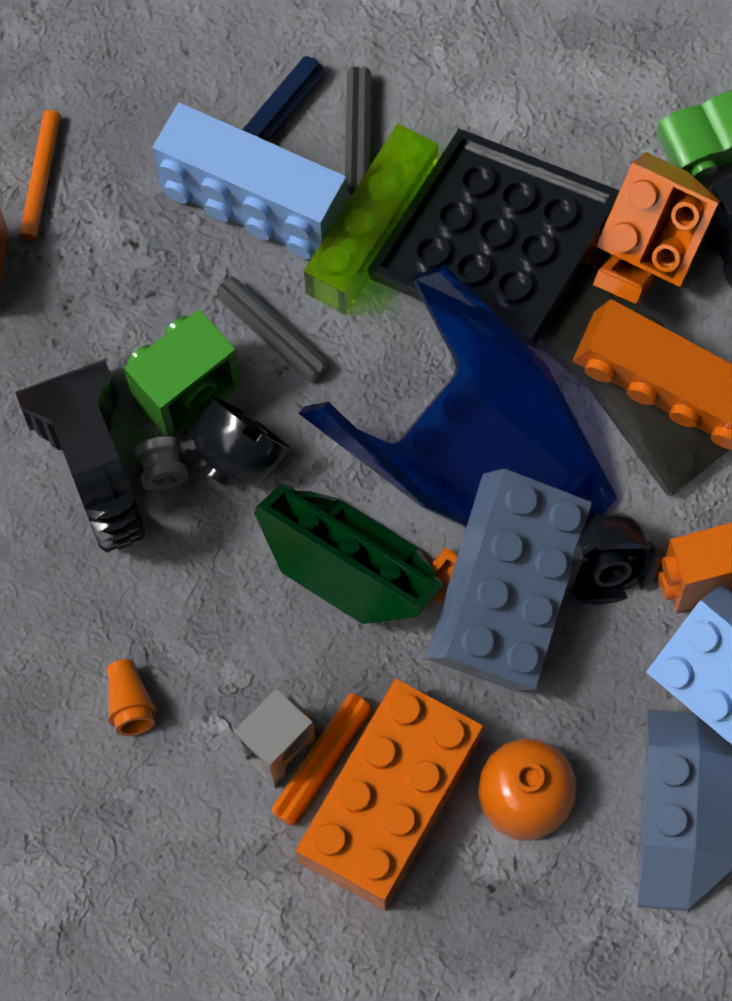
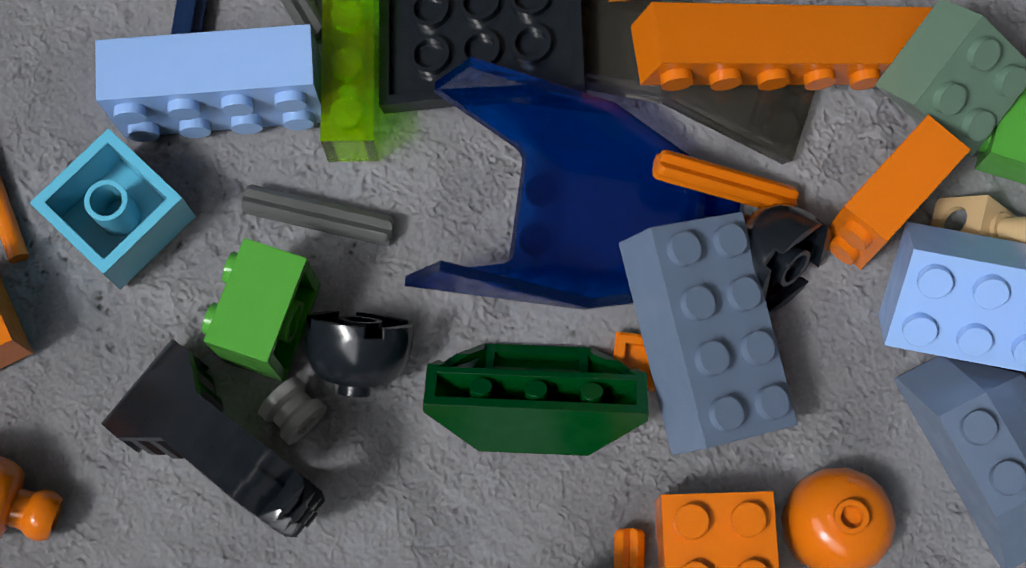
camera: 35 degrees left, 5 degrees up
(119, 238) = (113, 208): none -> medium azure brick
(601, 476) = (721, 180): none -> orange axle

